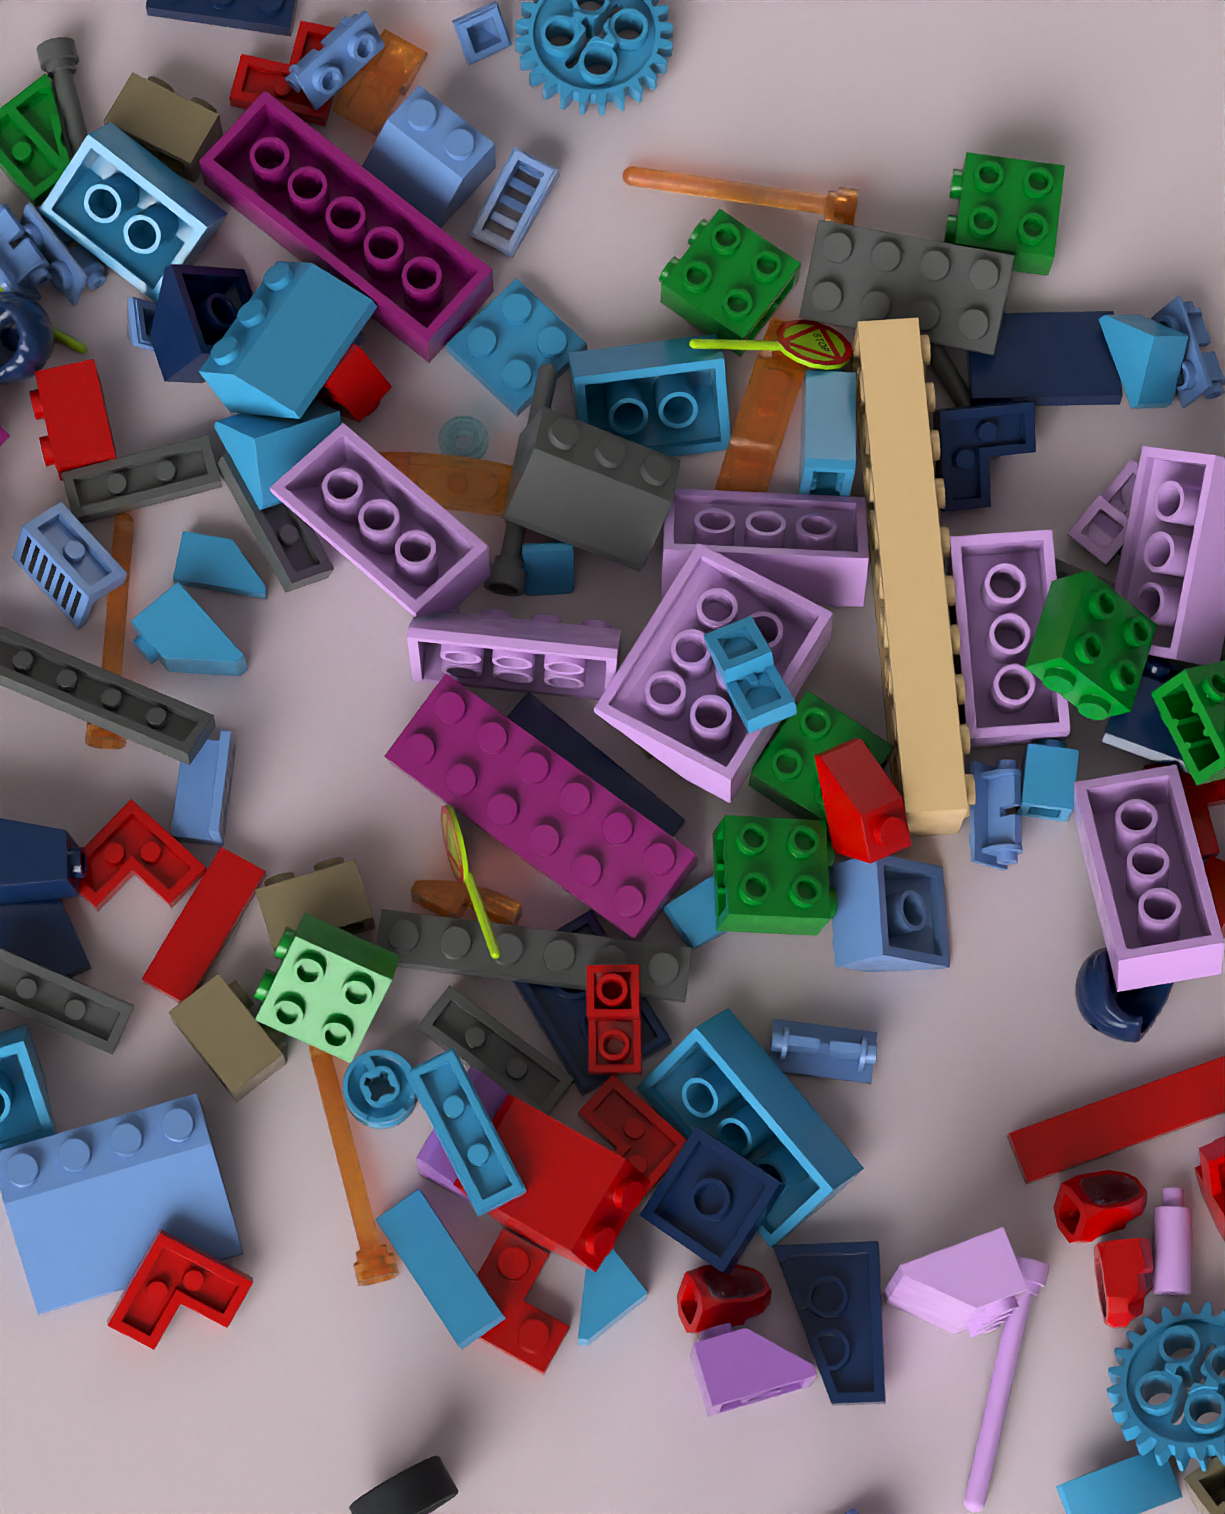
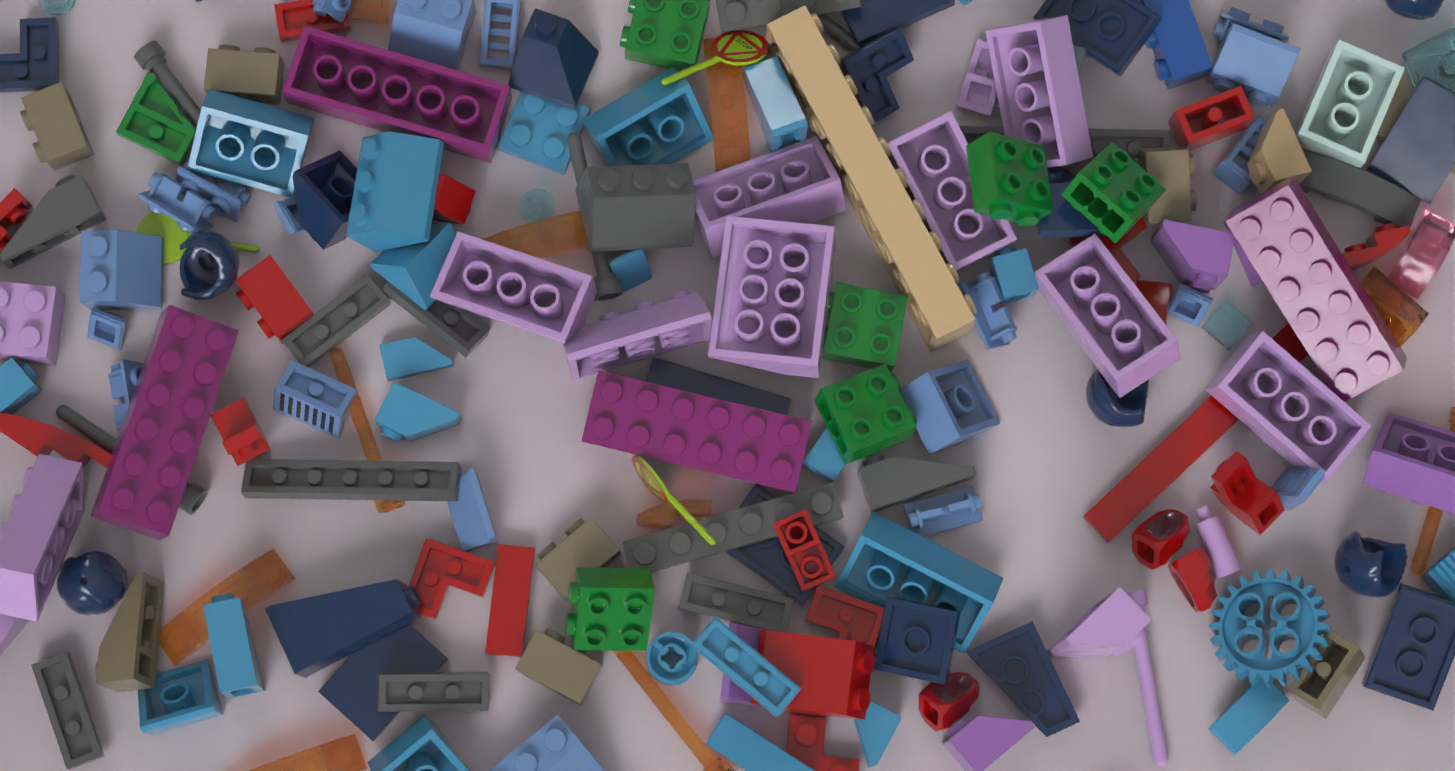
camera: 25 degrees left, 5 degrees up
(564, 263) = (553, 60): none -> dark blue slope
(750, 674) = (799, 290): dark azure slope -> none
(785, 985) = (904, 479): none -> dark grey slope
(861, 803) = (905, 344): red slope -> none

